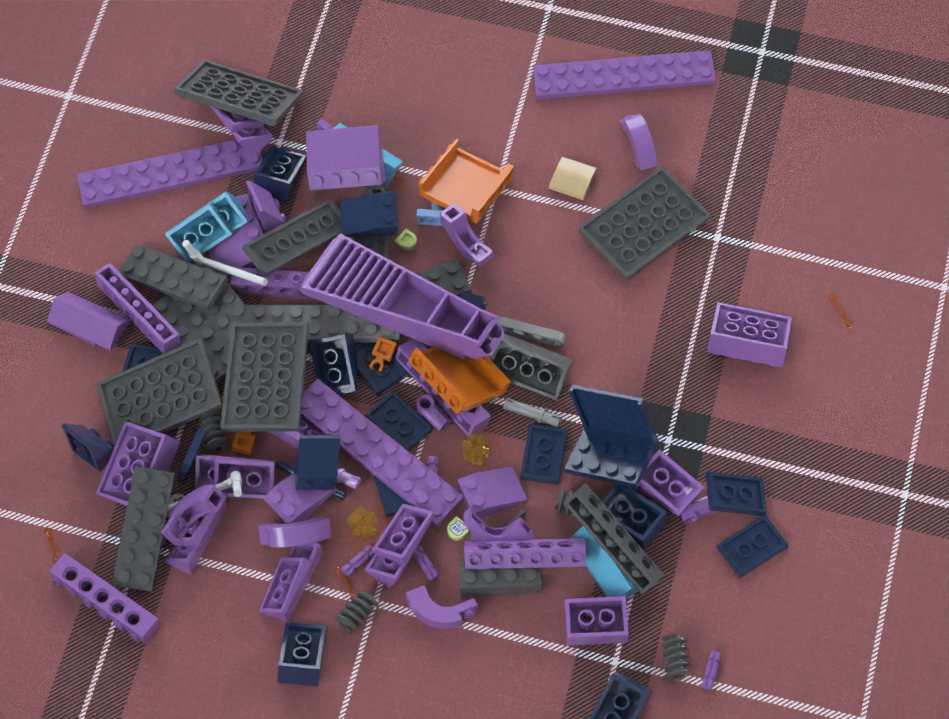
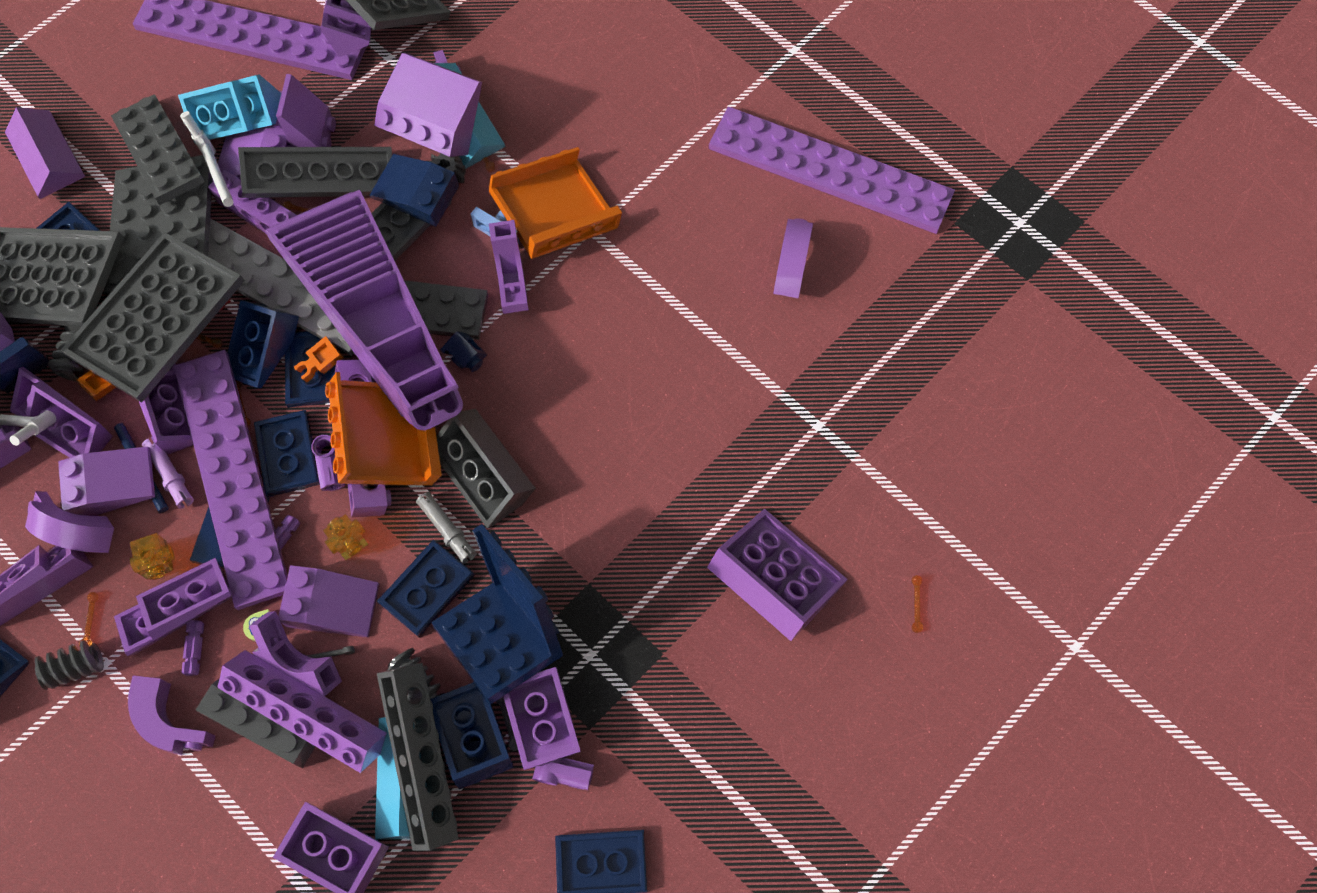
camera: 30 degrees right, 5 degrees up
(137, 309) = (92, 165): medium lavender brick -> none
(279, 172) = (353, 90): dark blue slope -> none
(317, 462) = (130, 454): dark blue slope -> none
(358, 560) = (117, 599): medium lavender axle -> none
(406, 241) = (447, 239): yellowish green tile -> none
(532, 332) = (508, 423): light grey beam -> none
(572, 178) = (686, 262): tan slope -> none
(644, 223) = (737, 361): dark grey plate -> none
(735, 494) = (620, 781): dark blue tile -> none

